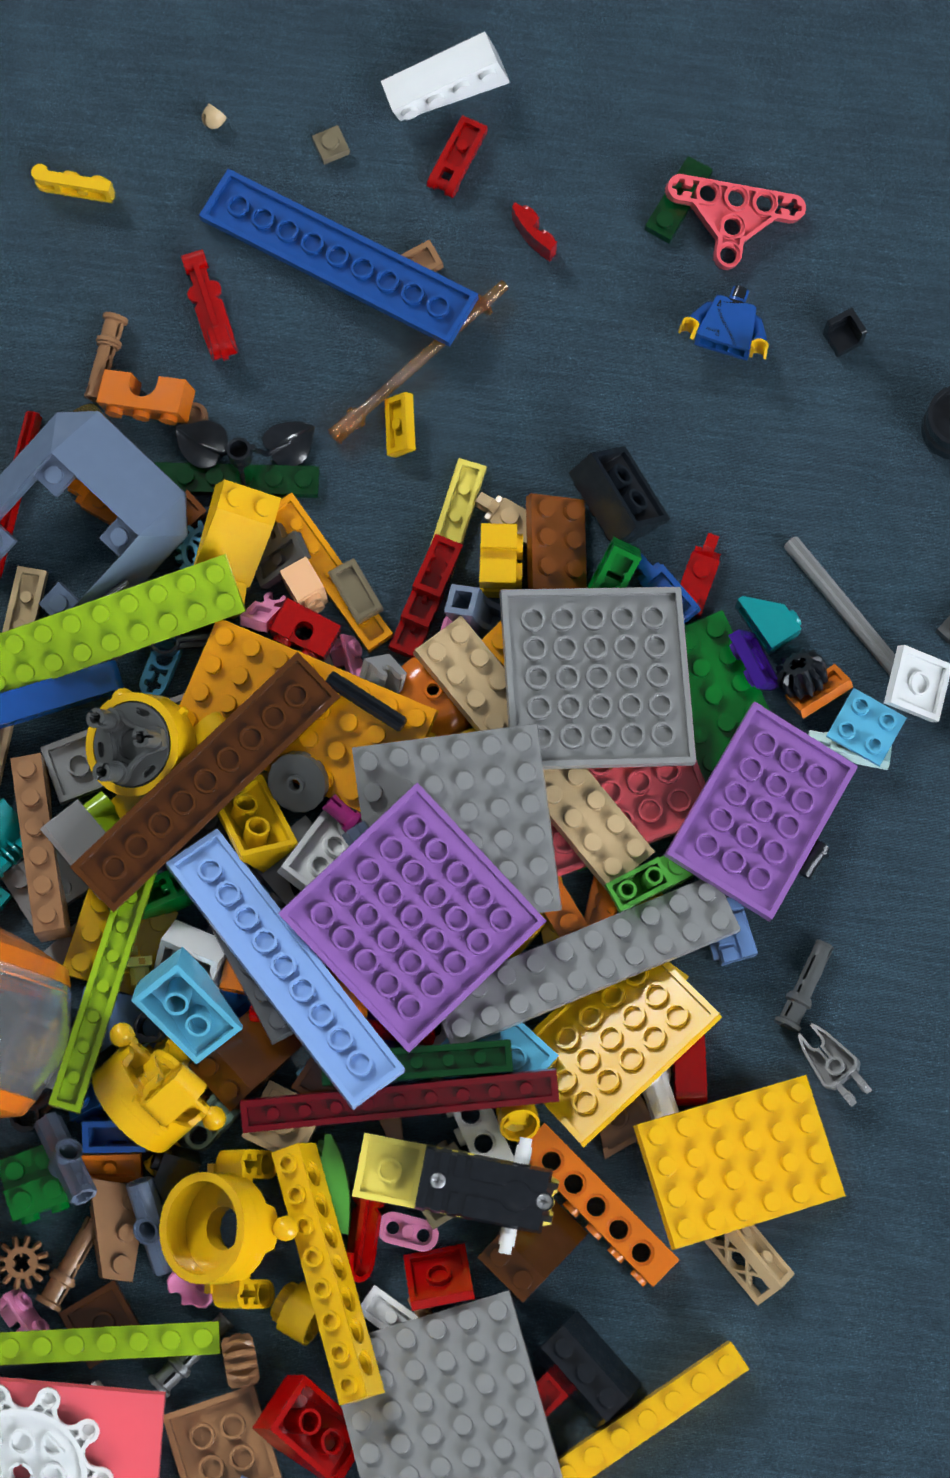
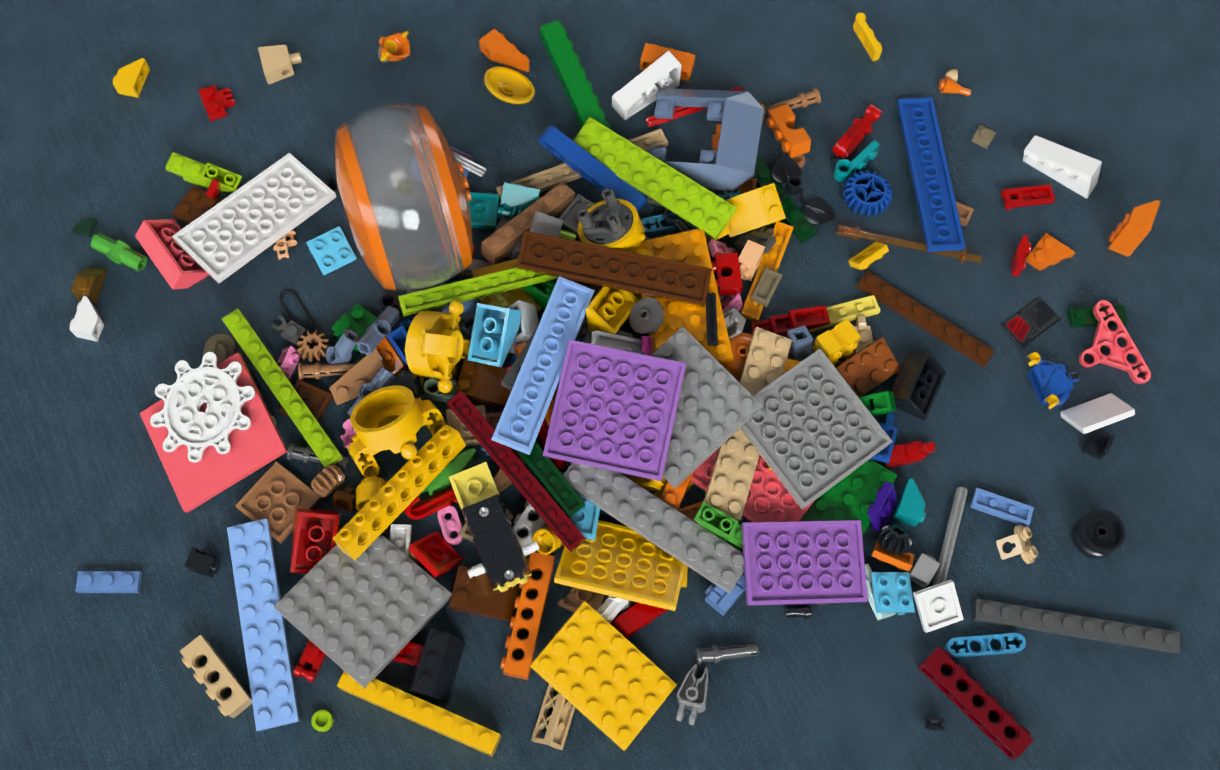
camera: 50 degrees right, 10 degrees down
(58, 1224) = (342, 350): none -> sand blue piece
(226, 132) = (949, 86): none -> orange cone
(258, 339) = (857, 164): none -> teal plate
(280, 1352) = (344, 500): none -> reddish brown tile
(326, 343) = (856, 191): none -> blue gear
(534, 417) = (926, 319): none -> reddish brown plate
(552, 191) = (1048, 252): none -> orange wing
(603, 65) = (1133, 228): none -> orange slope
(629, 286) = (1030, 322): none -> black sticker
(807, 303) = (1097, 413): none -> white tile
(845, 511) = (1001, 507): none -> medium blue plate
(862, 666) = (923, 570): none -> light grey brick
(906, 521) = (1023, 545): none -> tan bracket

